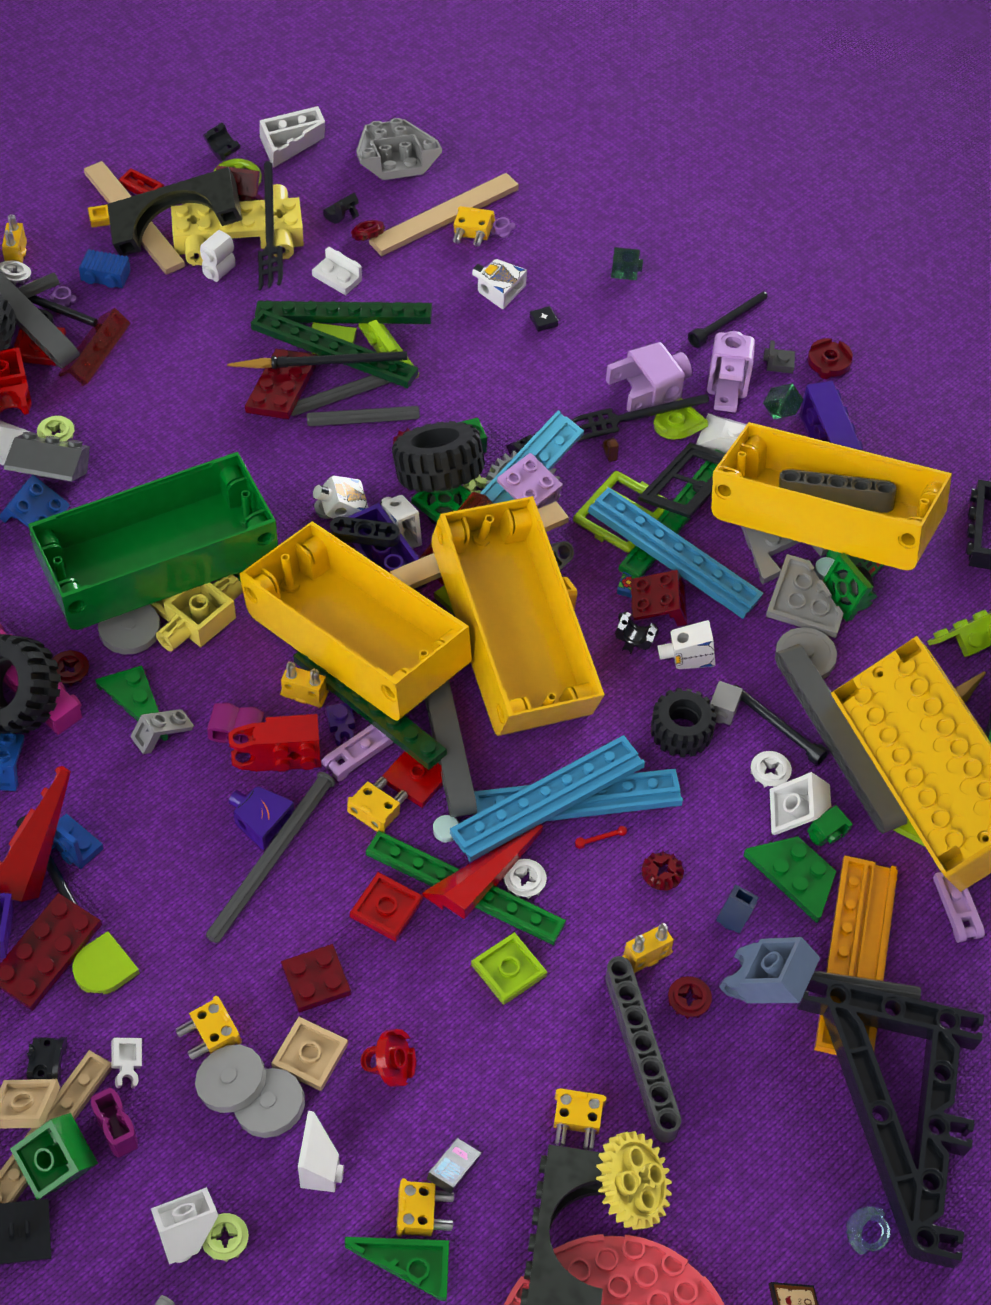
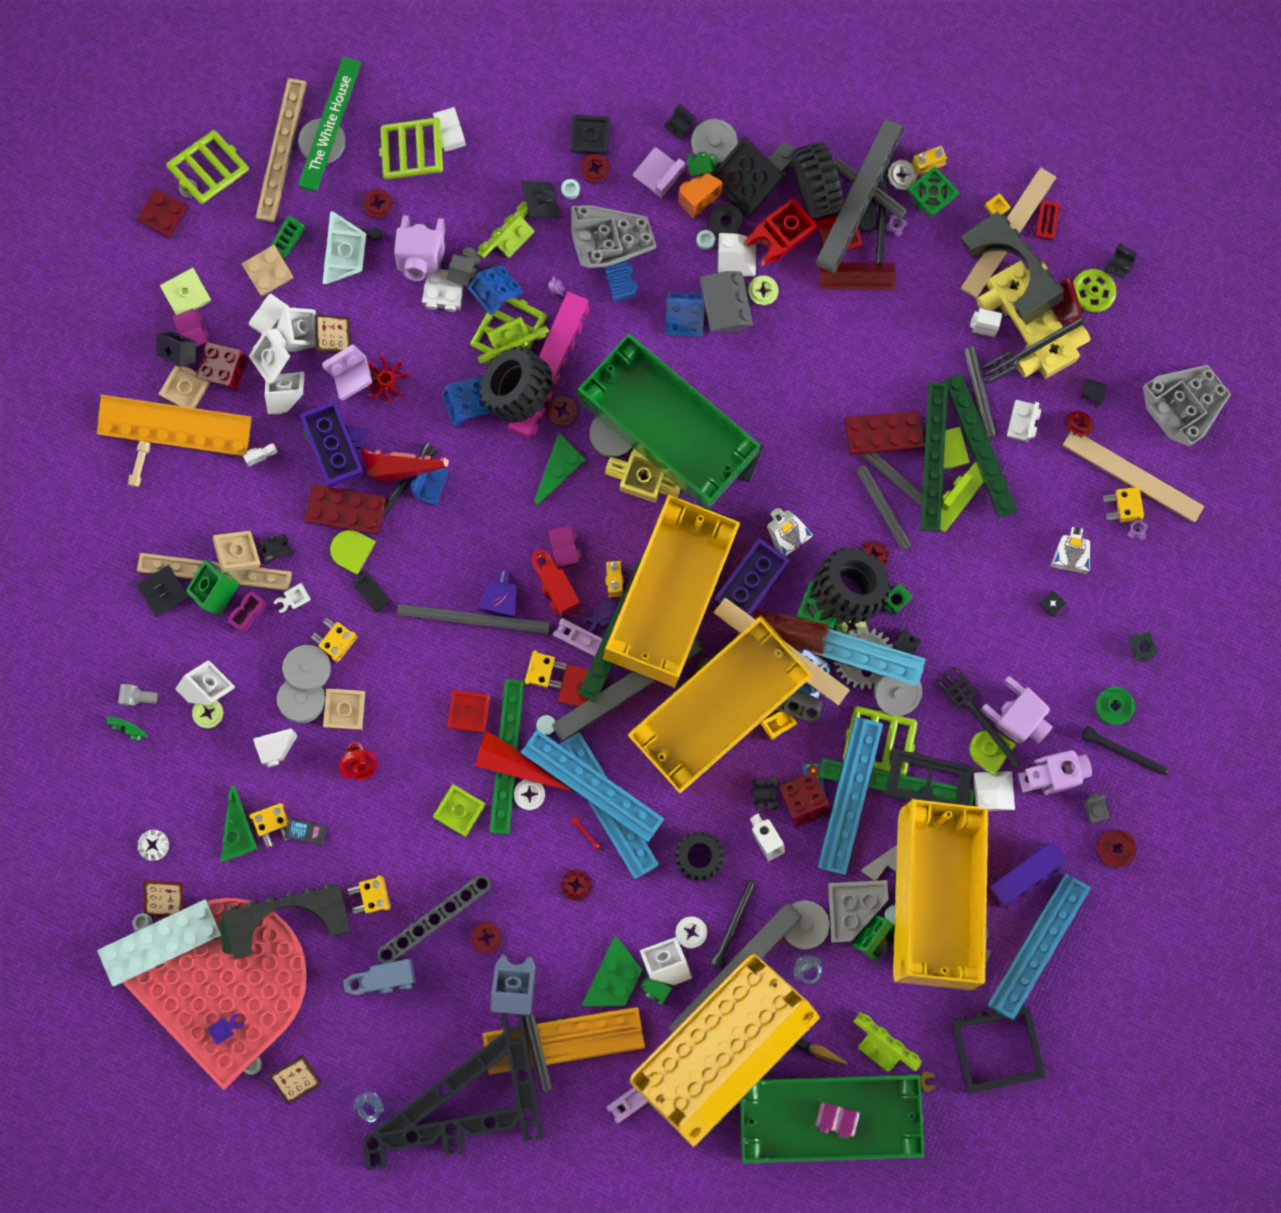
camera: 70 degrees right, 25 degrees up
(50, 252) = (933, 193): none -> green piece
(104, 269) = (937, 241): blue brick -> none
(154, 725) = (540, 498): light grey bracket -> none
(171, 963) = (371, 592): none -> black tile
(278, 294) = (979, 391): none -> dark grey axle
(284, 361) = (891, 412): black piece -> none
(291, 133) = (1156, 312): white wedge -> none
(315, 978) = (399, 688): dark red plate -> none
(371, 539) = (746, 550): black beam -> none
(404, 515) = (788, 581): white torso -> none
(530, 479) = (853, 663): lavender bracket -> none
(579, 472) = (896, 696): none -> light grey wheel
(611, 449) = (937, 708): reddish brown tile -> none
(634, 1180) = (335, 947): light yellow gear -> none
(649, 948) = (508, 897): yellow piece -> none
(677, 316) = (1122, 714): none -> green plate
(700, 1134) = (383, 978): none -> sand blue brick
(726, 701) = (730, 880): light grey brick -> none
(737, 909) = (562, 946): dark blue brick -> none
(783, 401) = (1044, 826): brick -> none
(847, 490) = (957, 890): dark grey beam -> none
(854, 665) = (804, 964): none -> clear light blue piece
(913, 447) = (1039, 947): none -> dark azure plate

